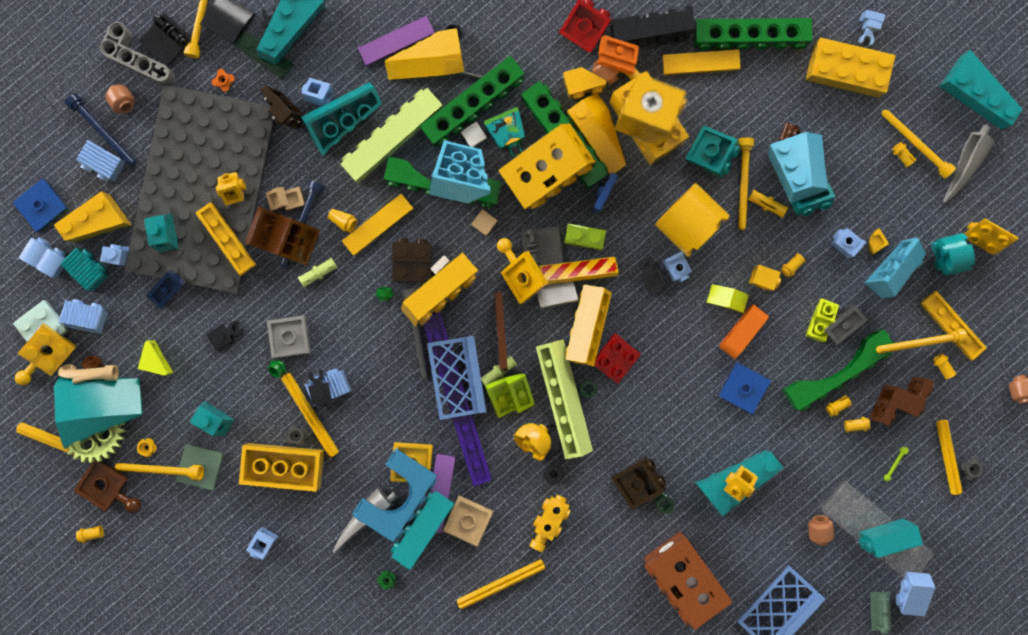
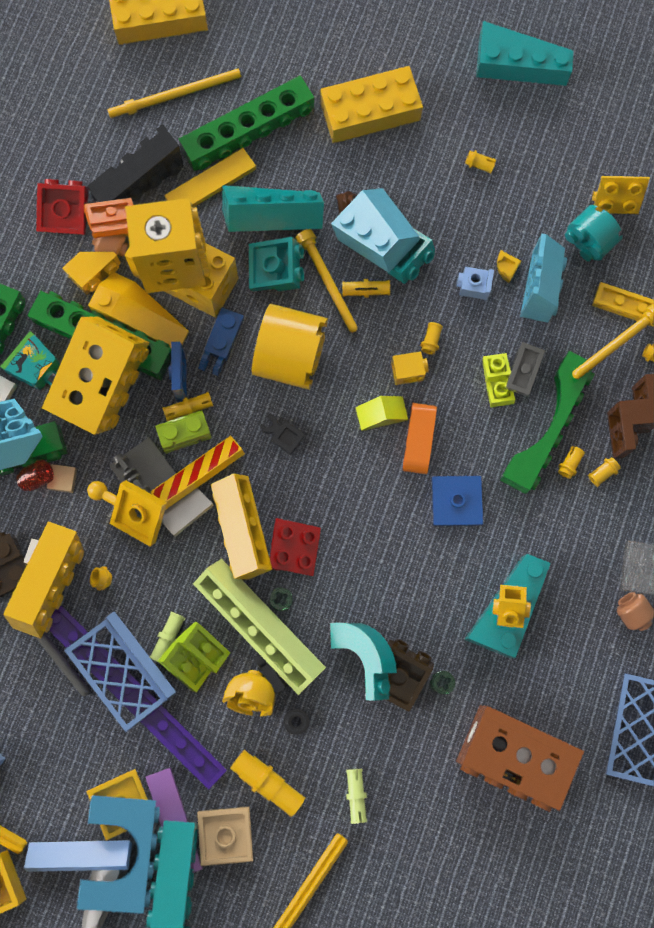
camera: 30 degrees left, 10 degrees down
(368, 480) = (78, 856): none -> light blue tile
(467, 212) = (35, 475): none -> clear red brick
(475, 306) = (100, 578): none -> yellow plate
(501, 331) = (144, 589): reddish brown tile -> none
(513, 503) = (267, 782): none -> yellow piece
(550, 518) = (322, 775): yellow brick -> none
(566, 543) = (356, 796): none -> yellowish green pin
(596, 220) = (187, 406): none -> yellow pin
(630, 458) = (373, 652): none -> arch
(646, 183) = (221, 339): none -> blue hinge
(671, 264) = (295, 408): light blue brick -> none
(733, 109) = (271, 209): none -> teal wedge
(872, 24) = (369, 50): light blue piece -> none
(944, 168) = (531, 153): yellow piece -> none
(971, 158) = (553, 127): light grey piece -> none

